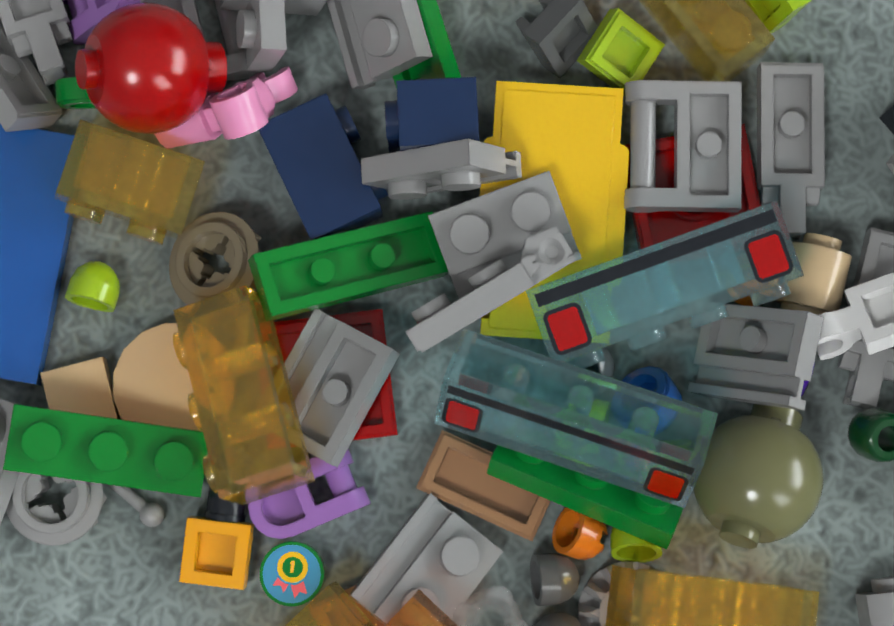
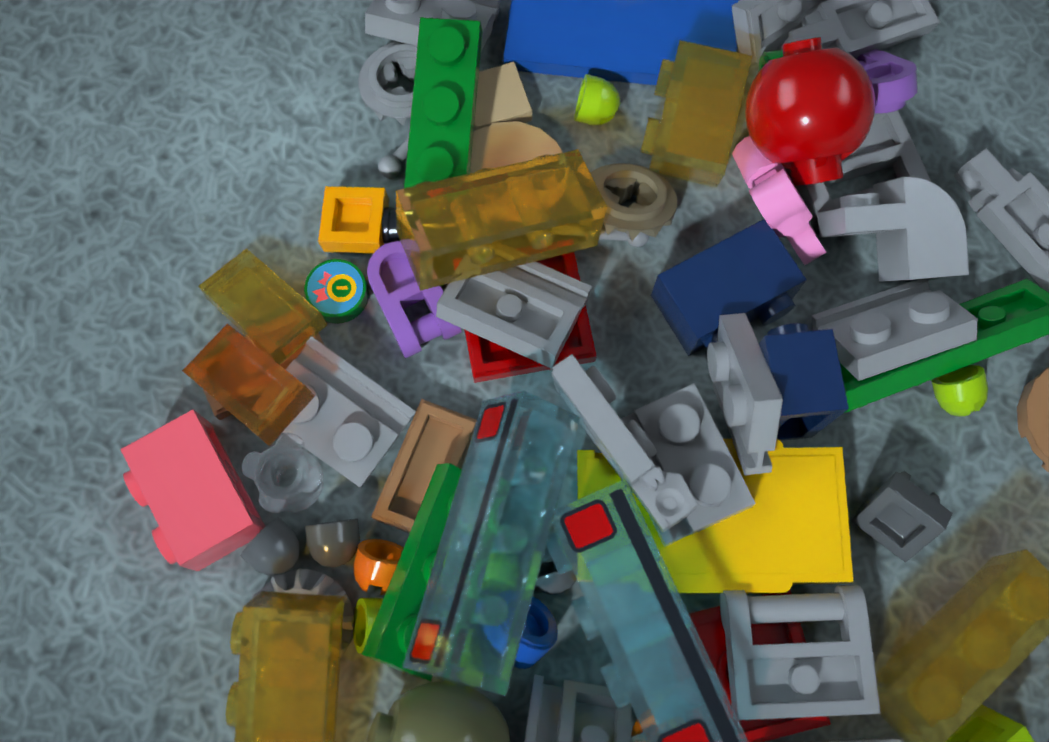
camera: 85 degrees right, 10 degrees down
(346, 266) = (634, 311): green plate -> none
(620, 50) = (892, 582): lime tile -> none

